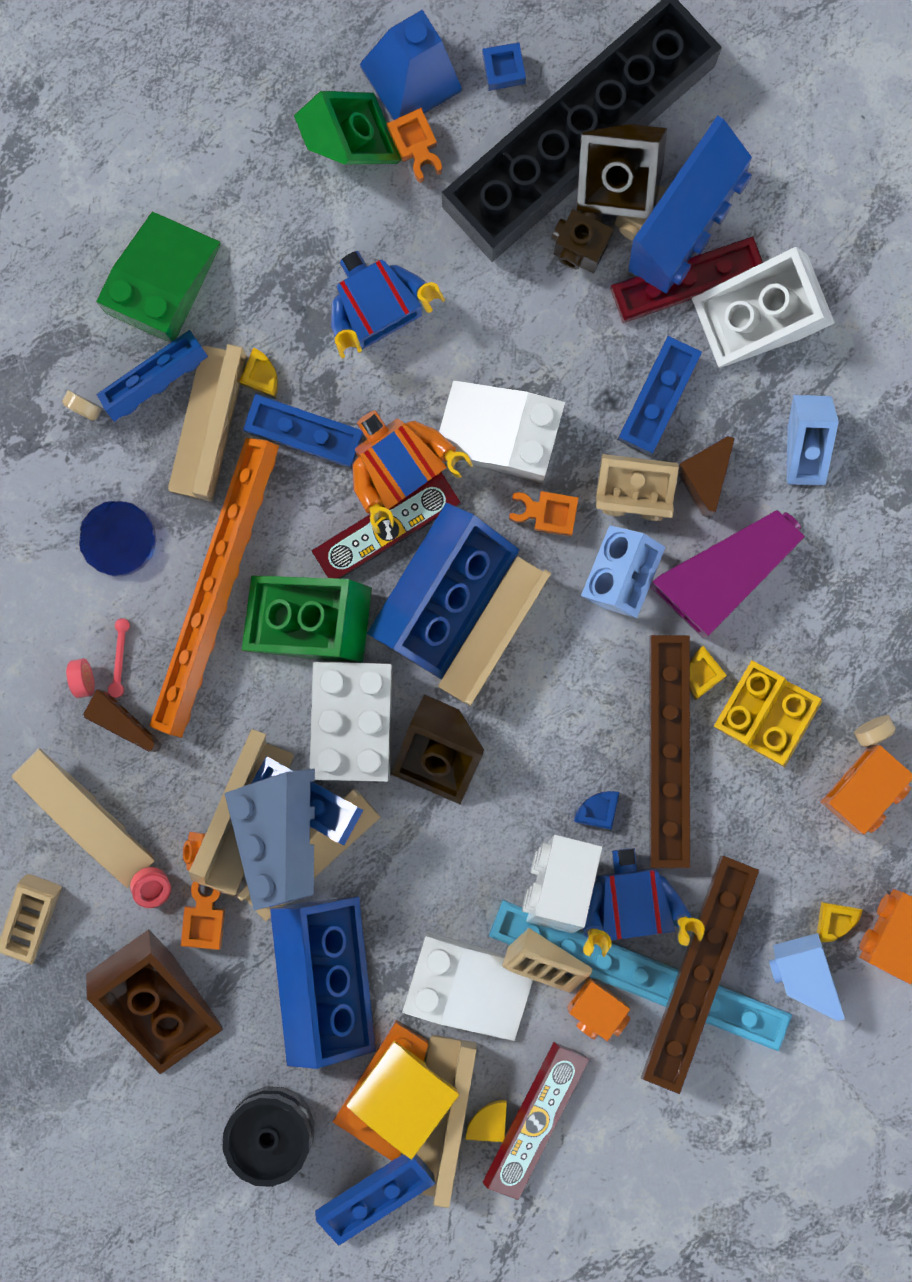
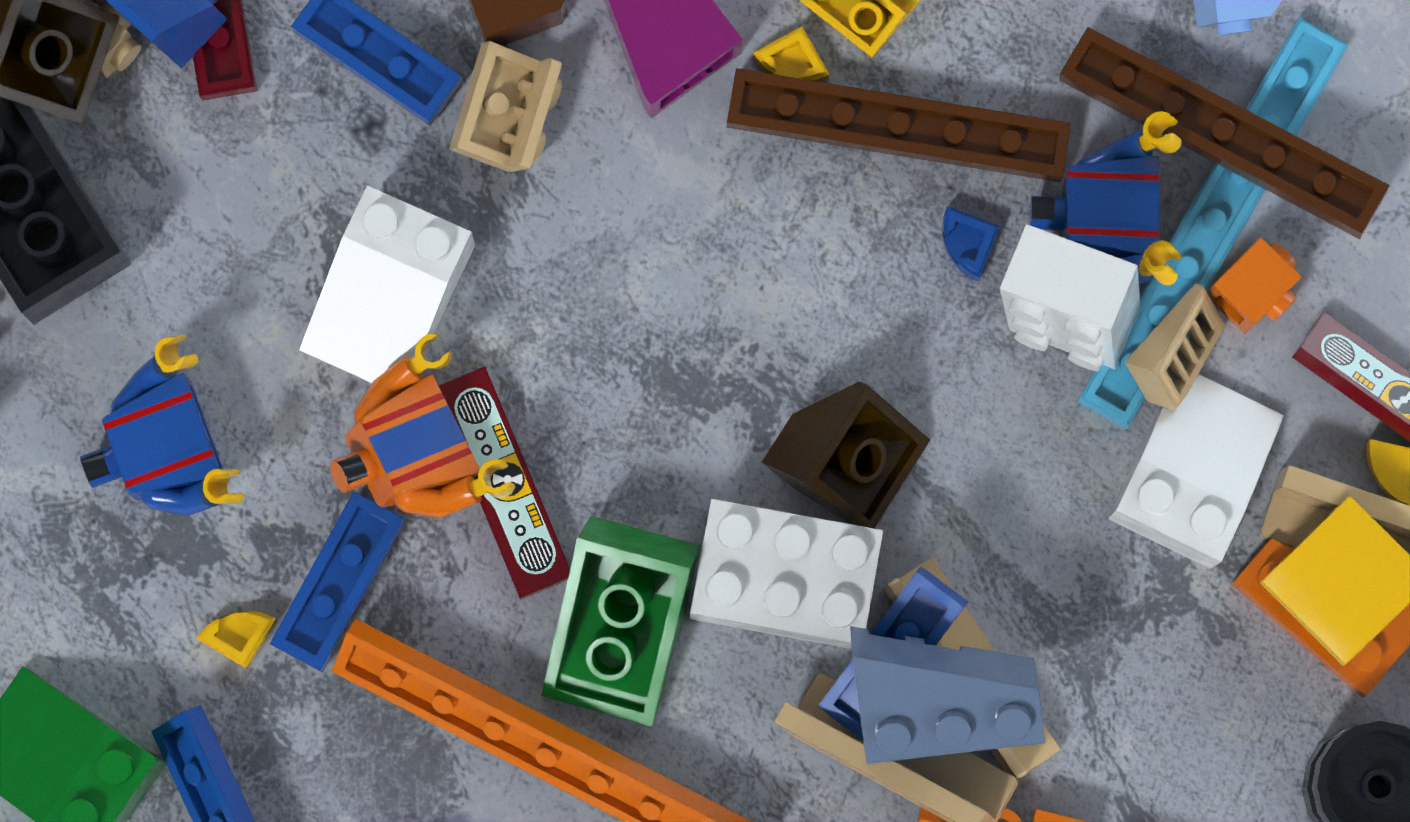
camera: 90 degrees left, 5 degrees down
(207, 423) = (299, 727): tan panel -> none
(322, 982) = (1160, 678): blue slope -> none
(443, 590) = (611, 411): blue slope -> none
(494, 631) = (685, 347): tan panel -> none
(552, 513) = (523, 237): orange plate -> none
(581, 240) = (127, 125): dark brown brick -> none
(623, 571) = (632, 138): light blue brick -> none

